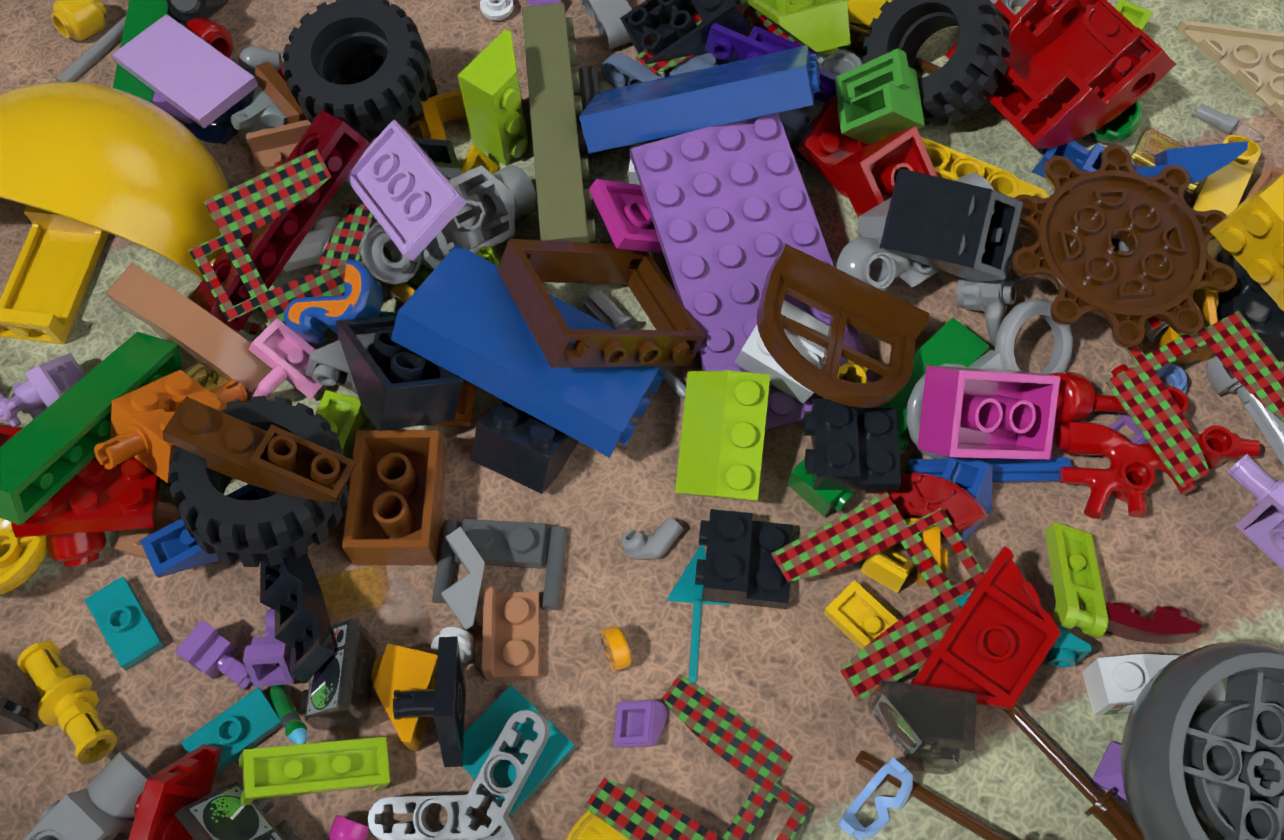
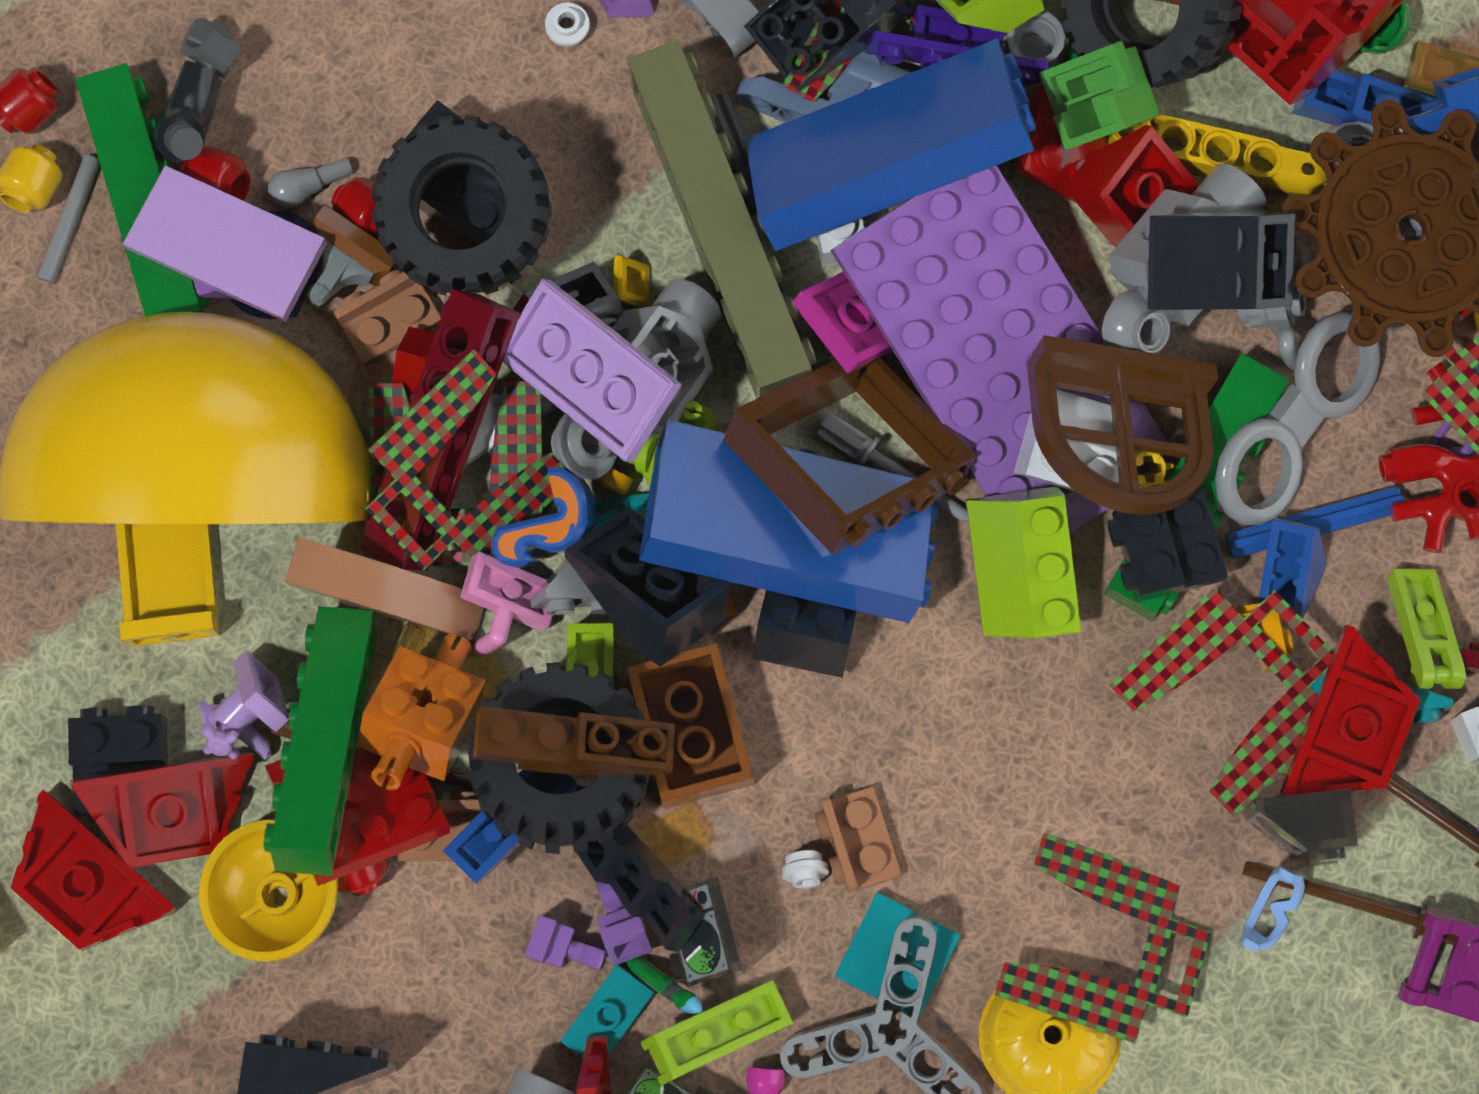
camera: 15 degrees left, 15 degrees up
(67, 702) = (426, 1033): yellow piece -> none
(124, 623) = (442, 936): teal plate -> none
(404, 670) = (772, 926): light orange slope -> none
(439, 110) = (586, 184): light orange bracket -> none
(443, 703) = (824, 933): black tile -> none
(464, 593) = (801, 807): light grey slope -> none
(495, 101) = (639, 200): lime slope -> none
(507, 546) = (818, 745): dark grey plate -> none
(615, 647) = (973, 825): light orange tile -> none
(644, 723) = (1023, 895): medium lavender slope -> none
(651, 546) = (976, 703): light grey arm -> none
(688, 592) = (1037, 734): teal piece -> none
(740, 560) = (1076, 694): black plate -> none
(859, 615) = (1215, 724): yellow plate -> none
(888, 568) = (1234, 664): yellow slope -> none
(926, 493) = (1259, 573): red tile -> none
(988, 413) = (1303, 472): dark pink brick -> none
(1075, 397) = (1379, 420): red head -> none

